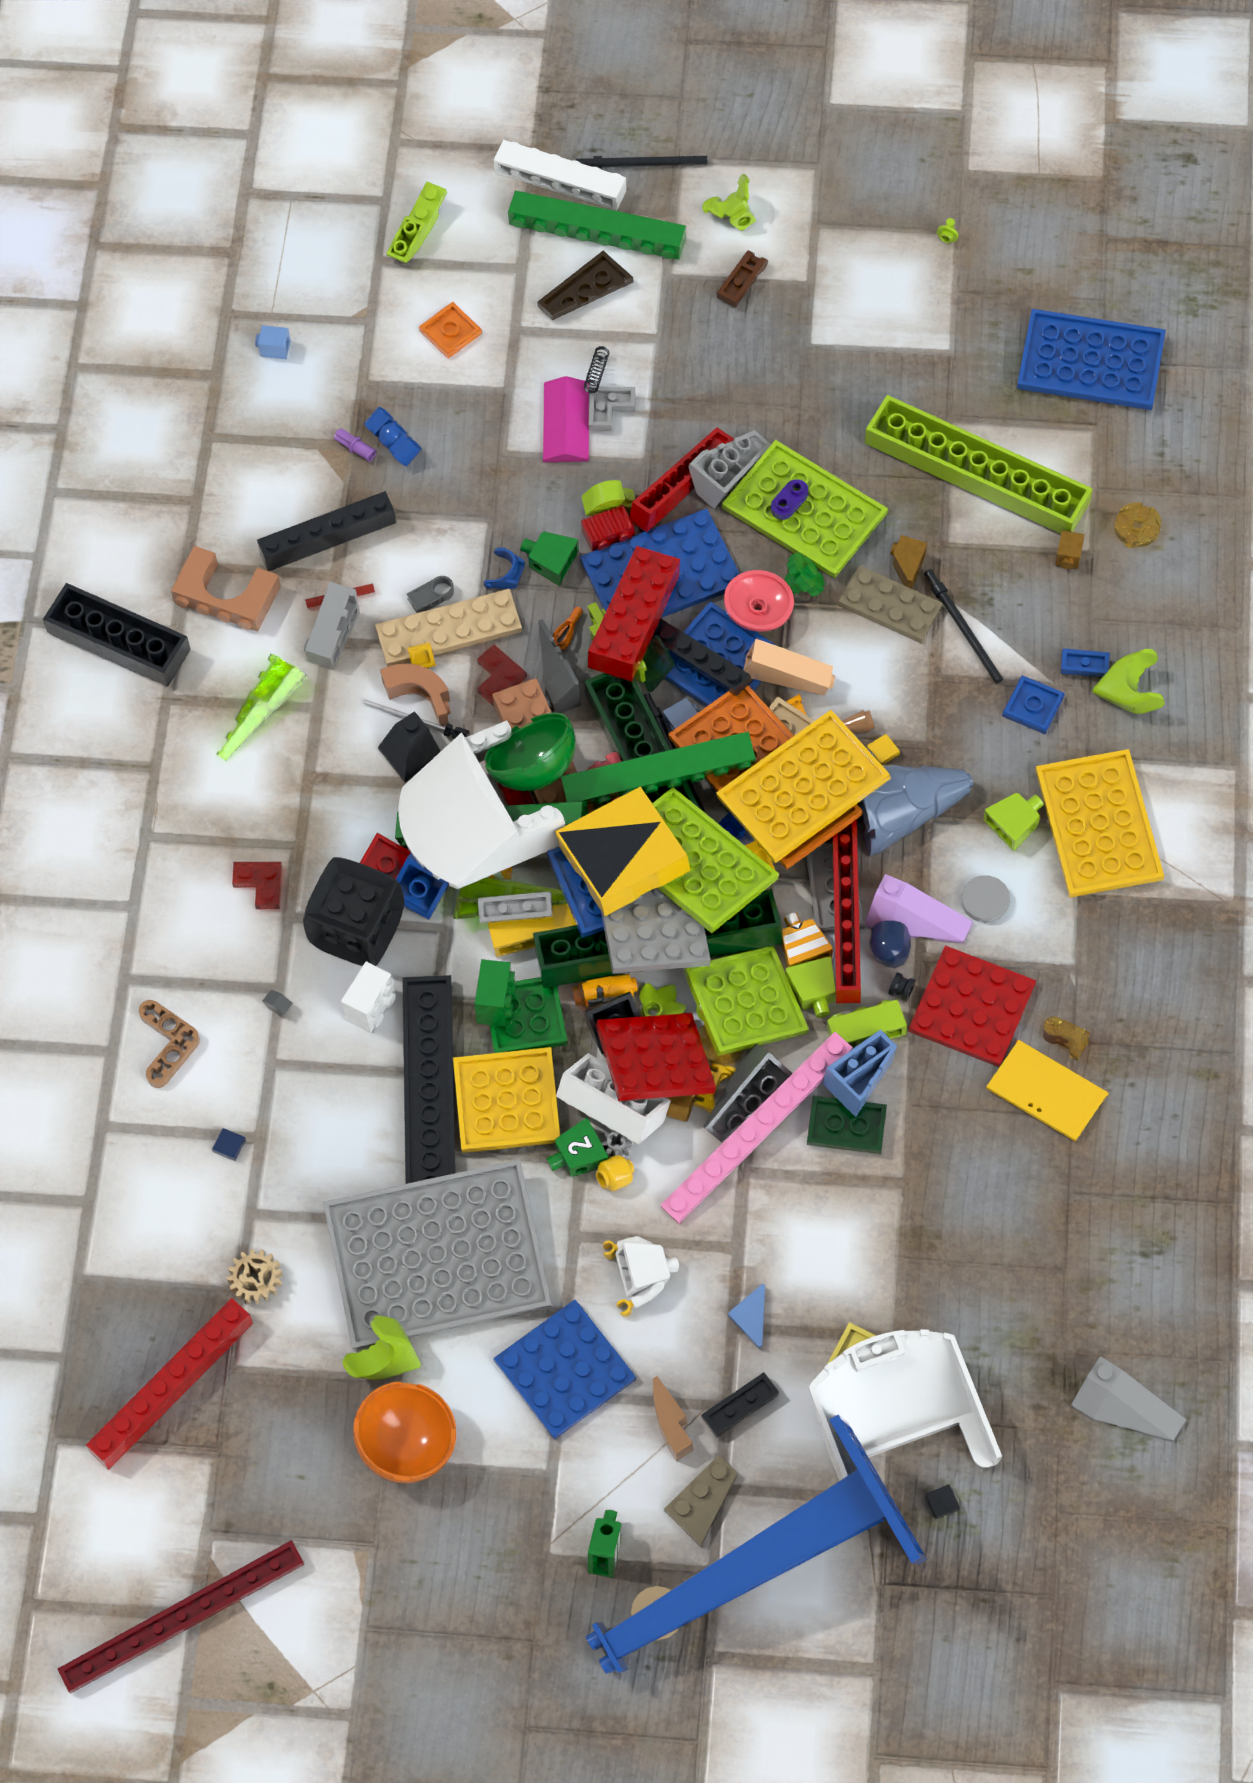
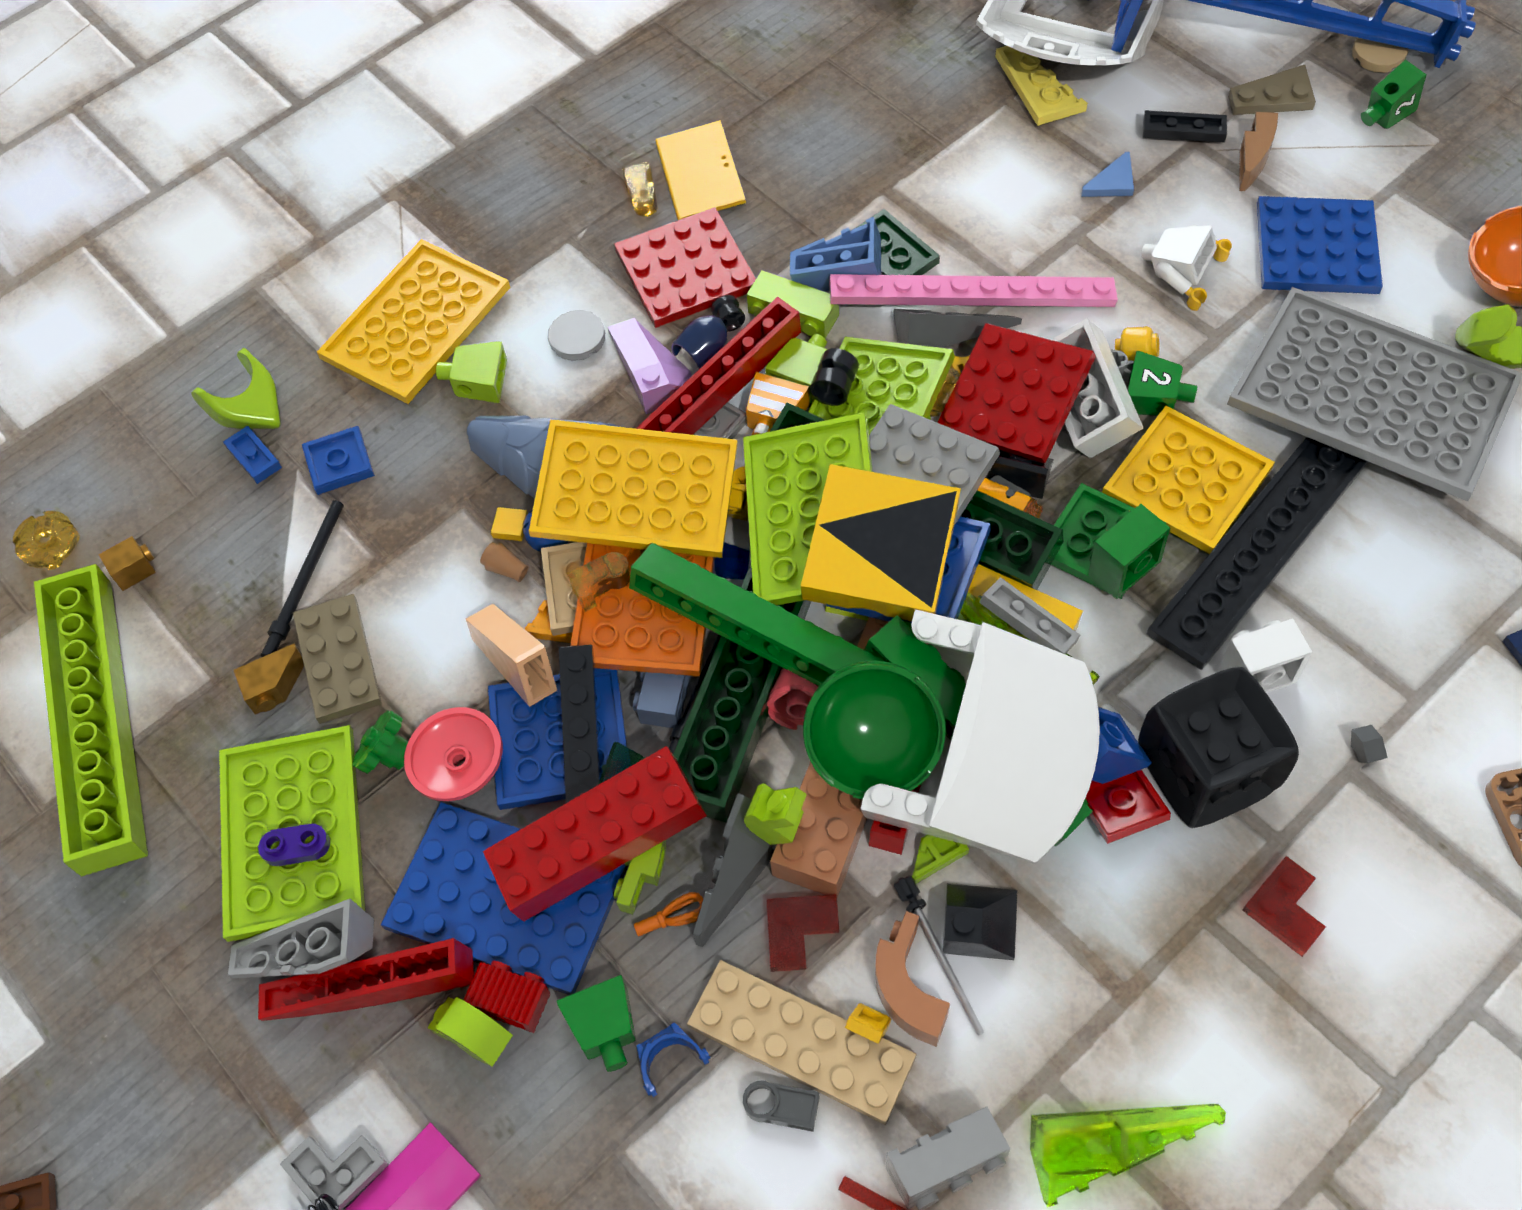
camera: 135 degrees left, 5 degrees down
(548, 686) = (775, 813): none -> lime brick
(768, 730) = (598, 577): none -> clear yellow leg
(776, 977) = (834, 377): none -> black wheel

